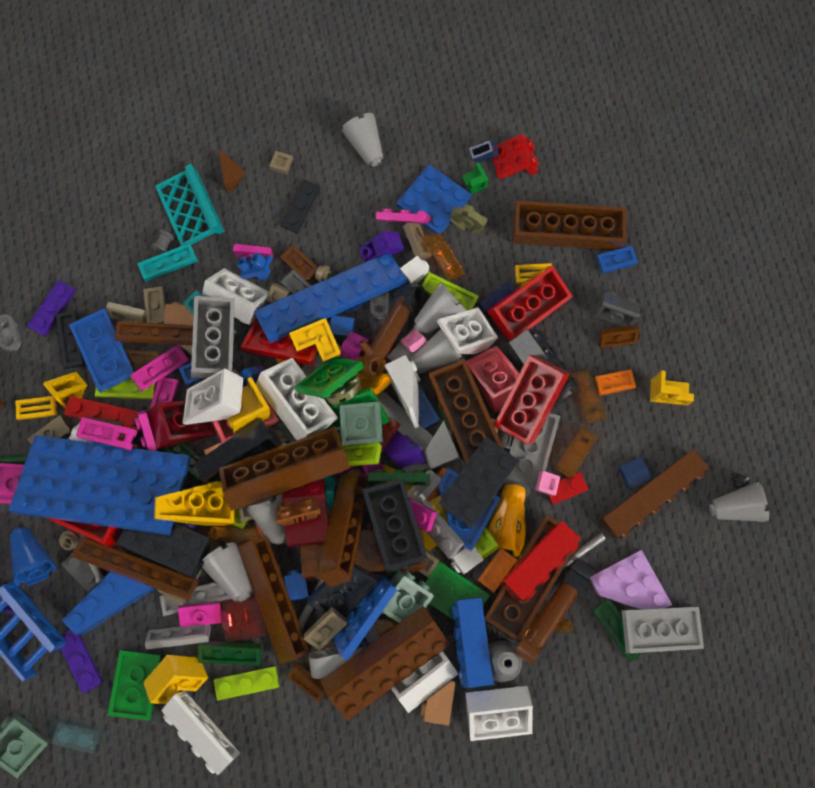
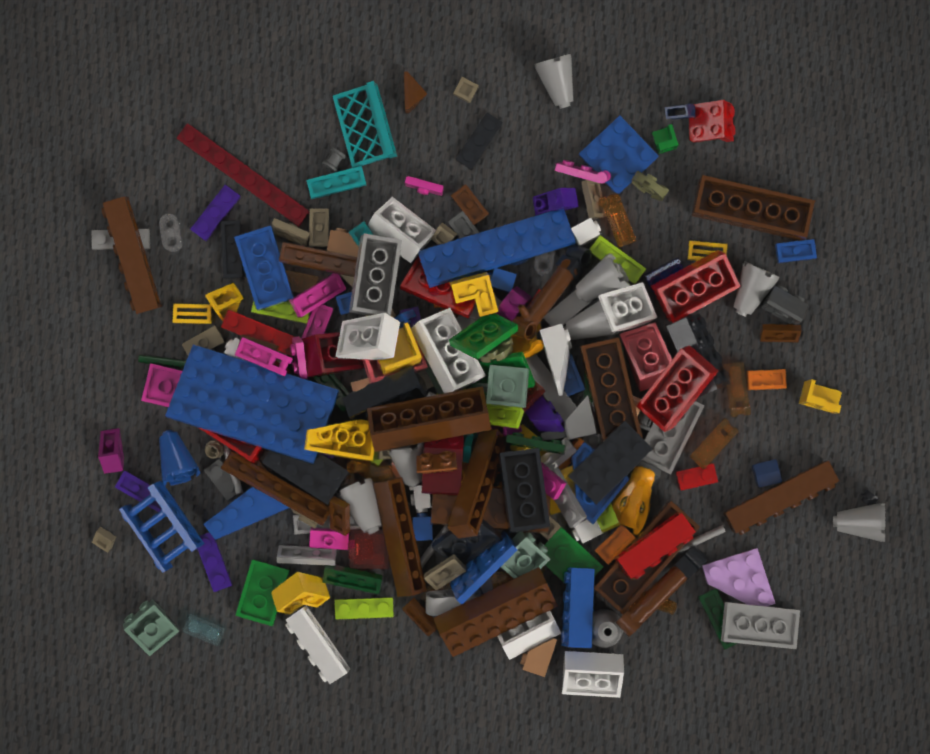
camera: 15 degrees right, 10 degrees up
(75, 269) = (243, 175): none -> dark red plate
(206, 587) = (339, 515): none -> reddish brown plate
(255, 267) = (424, 203): blue hips -> none
(290, 556) = (420, 500): none -> white brick
(323, 273) = (492, 220): dark tan plate -> none
(413, 341) = (572, 306): bright pink plate -> none
(547, 483) = (678, 470): bright pink plate -> none
(586, 295) = (754, 287): none -> light grey cone

